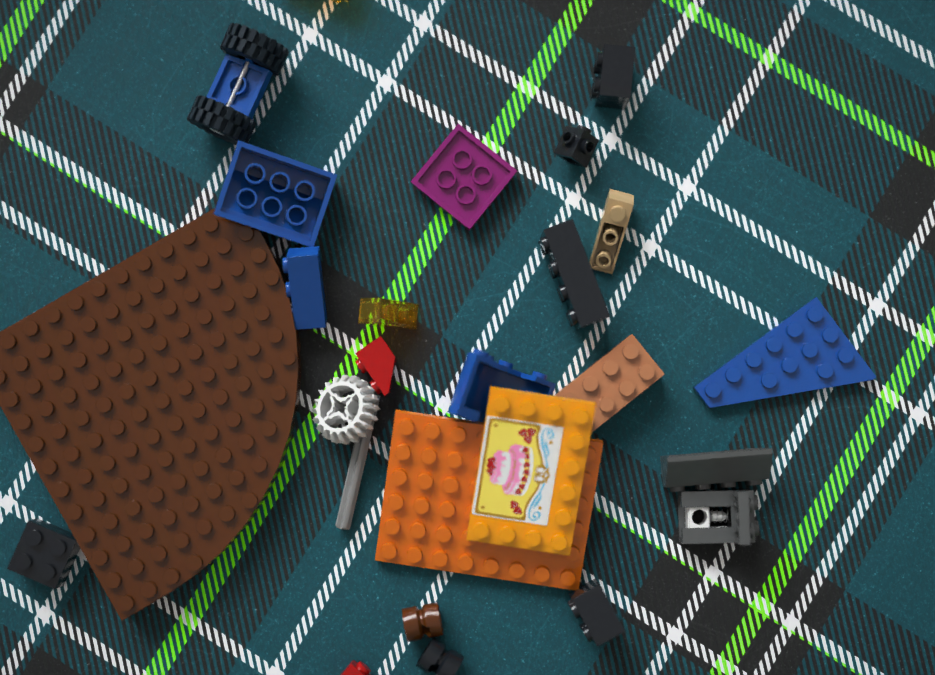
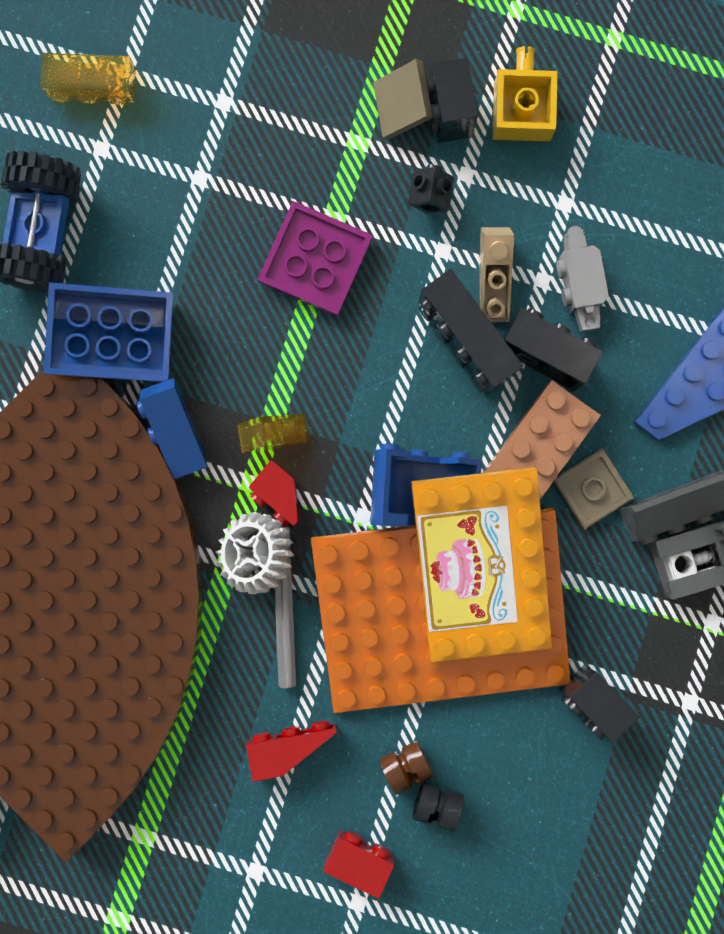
camera: 15 degrees left, 0 degrees up
(319, 581) = (279, 753): none -> red slope
(573, 63) = (402, 99): none -> dark tan tile
(638, 307) = (552, 349): none -> black brick
(643, 433) = (593, 489): none -> dark tan tile
(678, 80) = (527, 87): none -> yellow brick
(683, 256) = (583, 279): none -> light grey hinge

